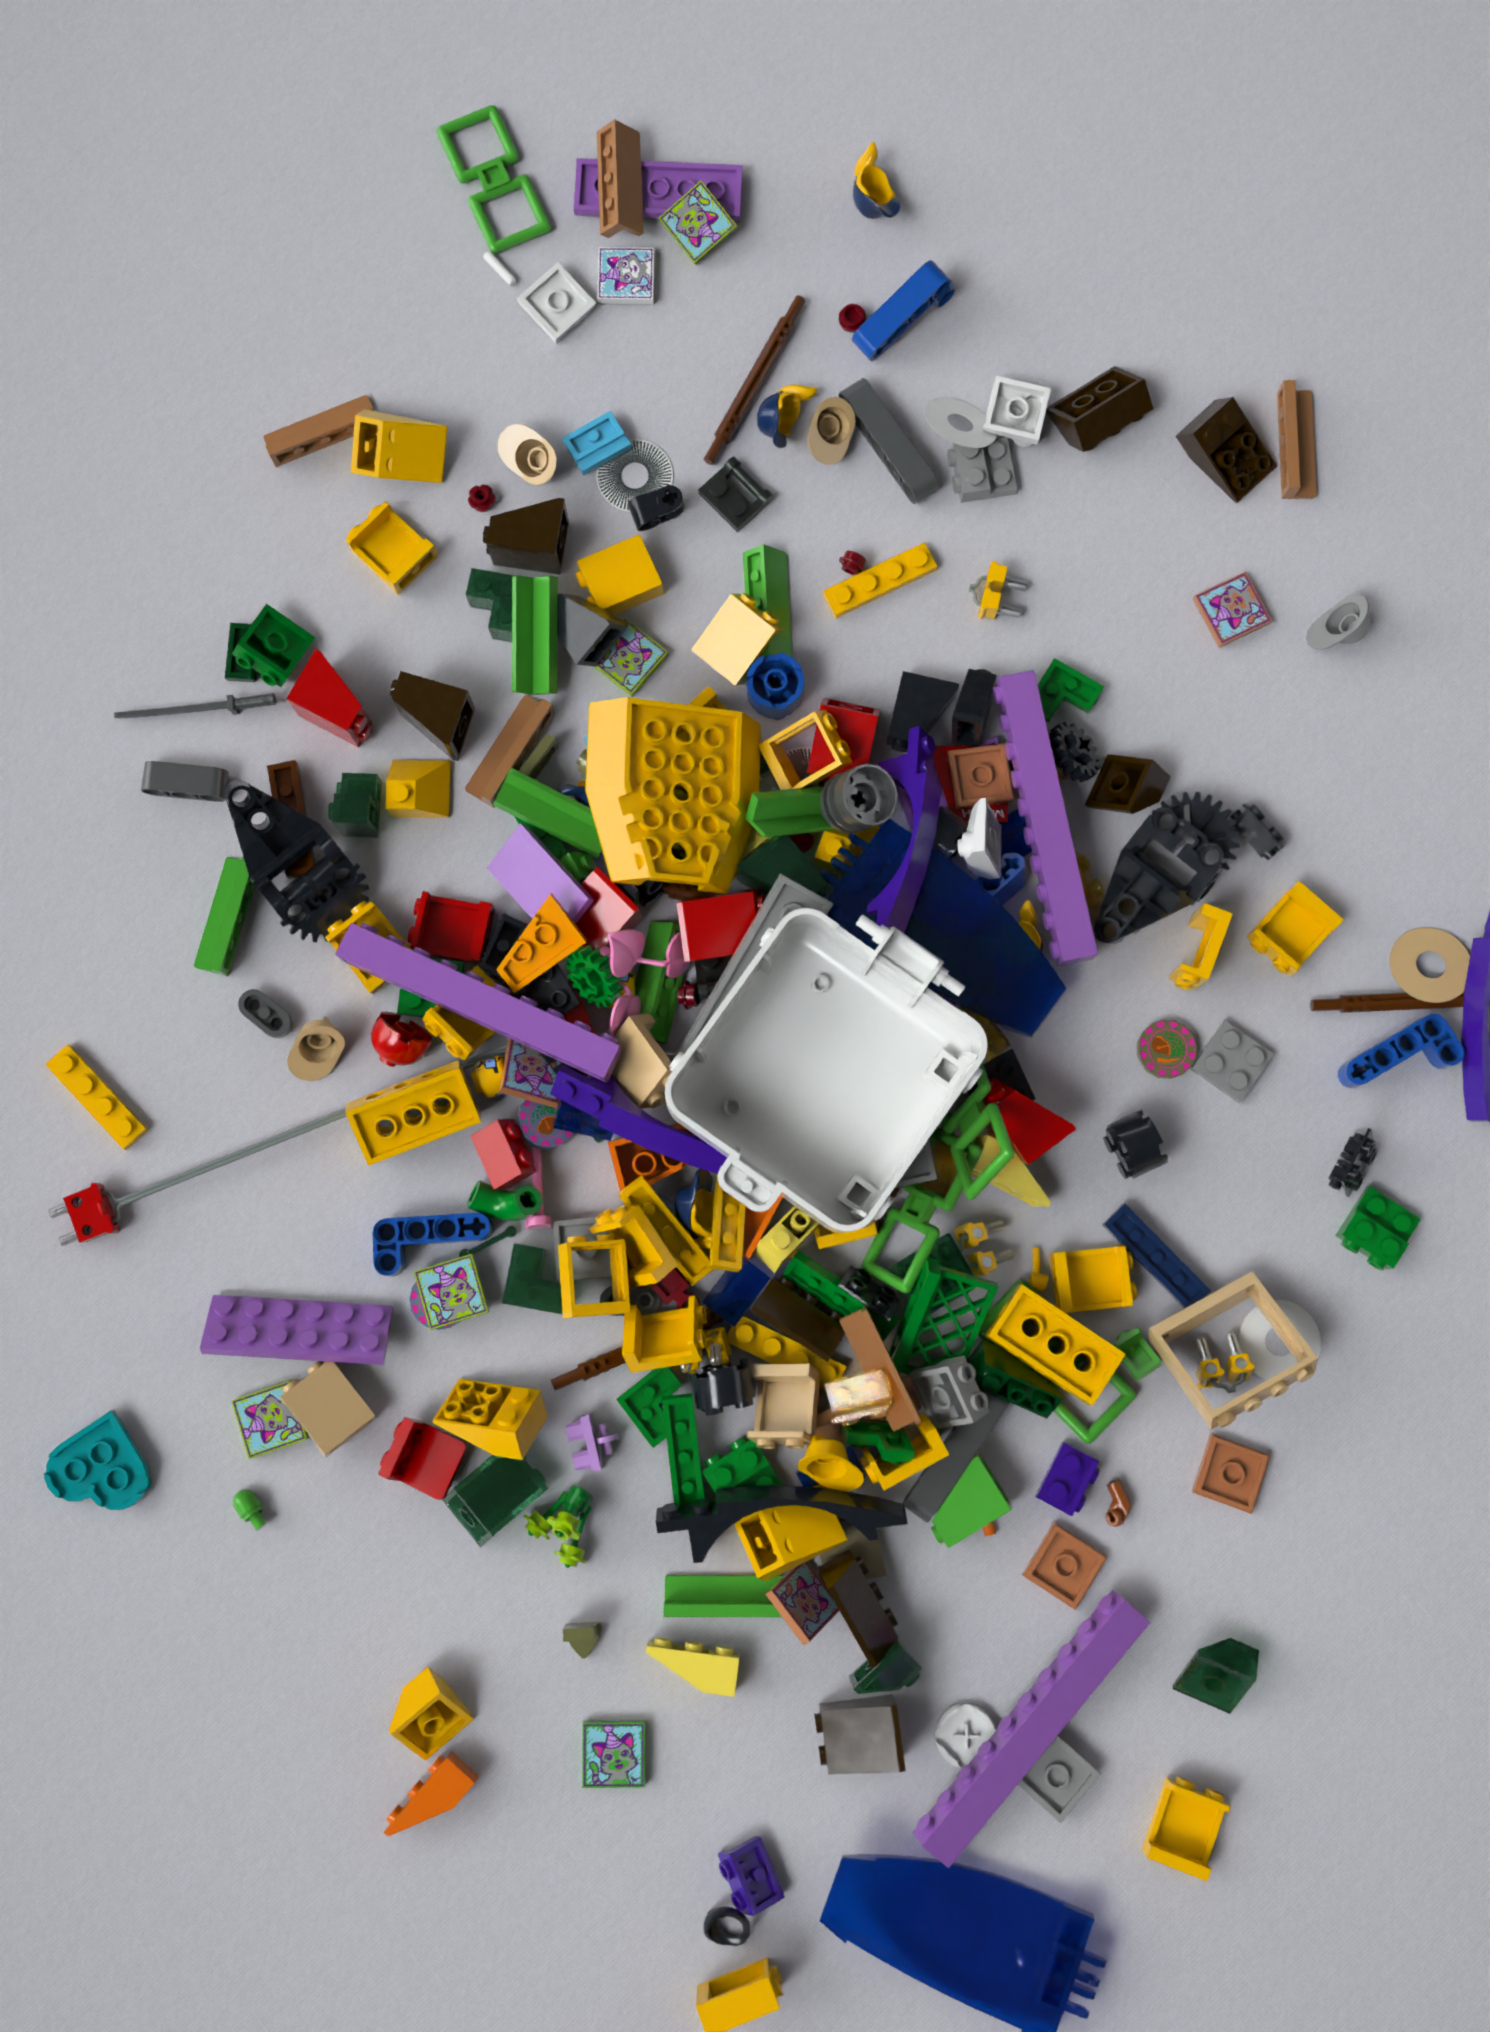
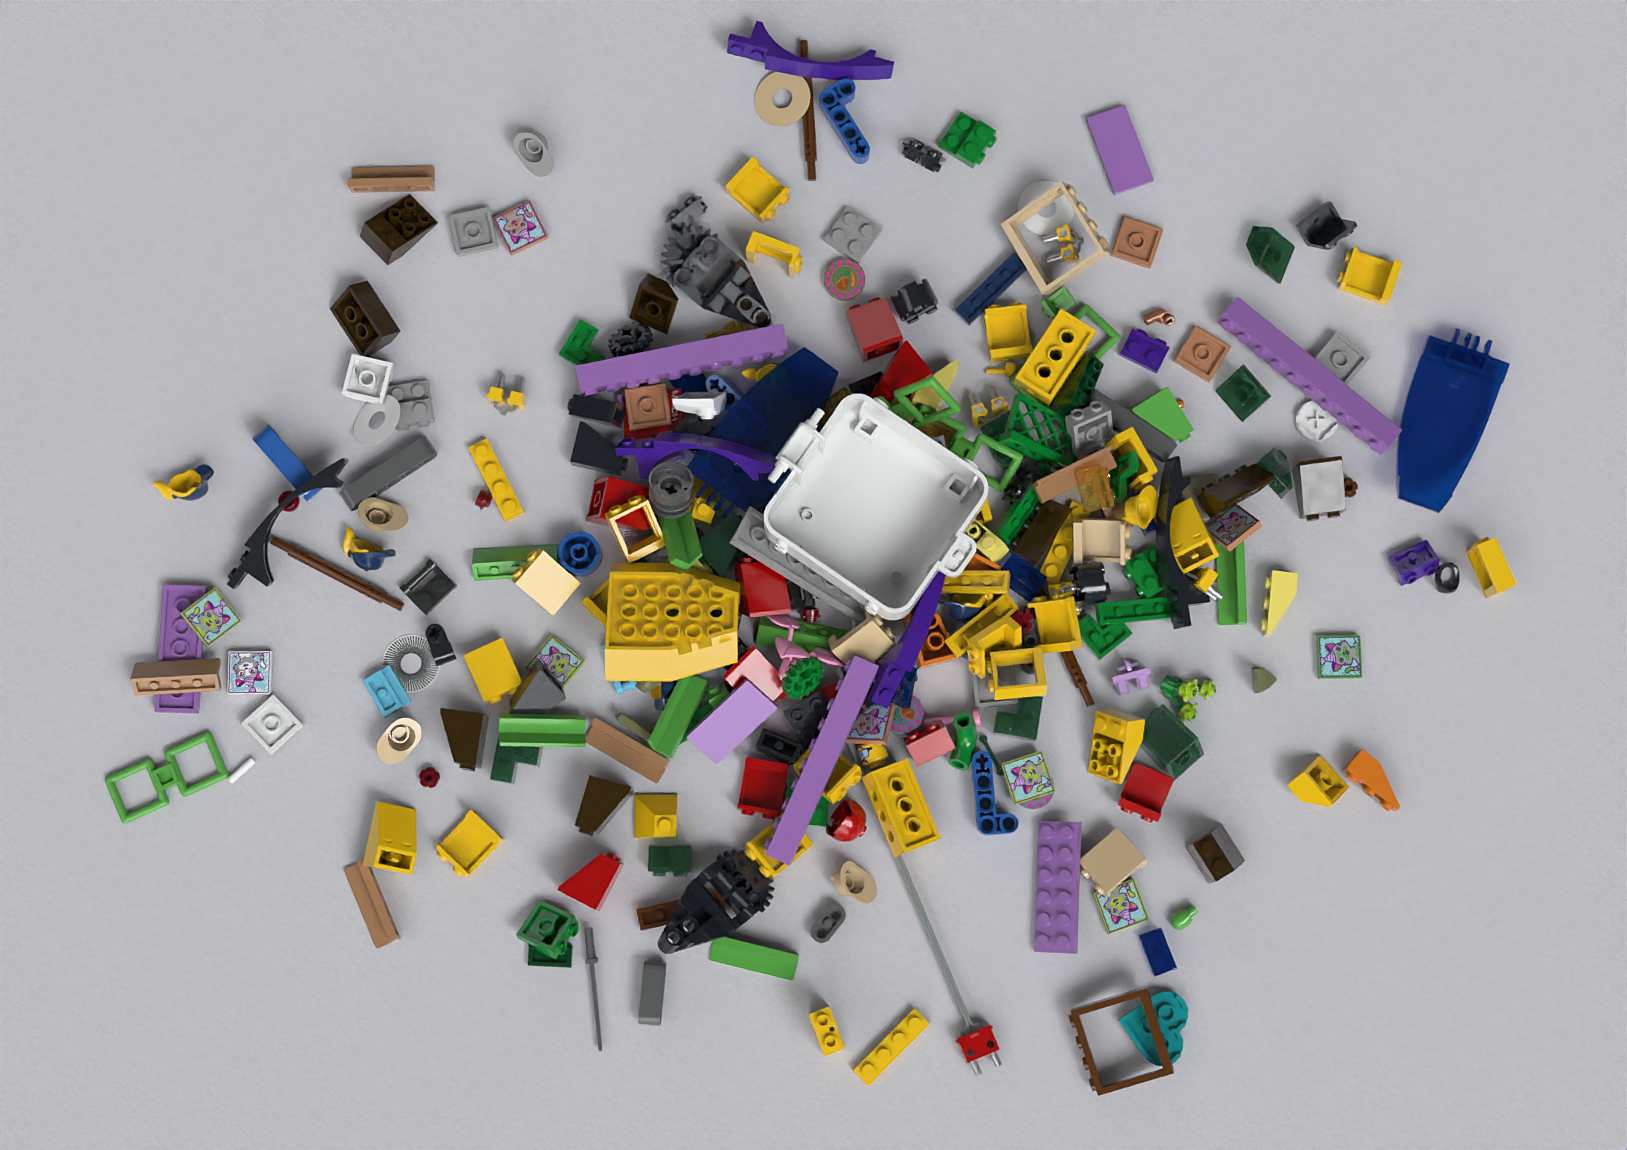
camera: 90 degrees left, 0 degrees up
(104, 1006) = (829, 1040): none -> yellow window
(140, 1437) = (1088, 1060): none -> reddish brown window
(203, 1468) = (1157, 951): none -> clear blue panel
(331, 1560) = (1215, 854): none -> dark brown slope
(541, 945) = (780, 715): light orange wing -> none
(724, 1553) = (1203, 581): none -> yellow piece
(773, 276) = (256, 561): none -> black slope
(864, 1787) = (1351, 492): none -> reddish brown plate
(1004, 1624) = (1243, 393): none -> clear green slope
(1094, 1087) = (874, 329): none -> red slope
(1225, 547) = (473, 231): none -> light grey plate
(1258, 1762) = (1325, 227): none -> black bracket
(1370, 1452) = (1119, 150): none -> medium lavender tile

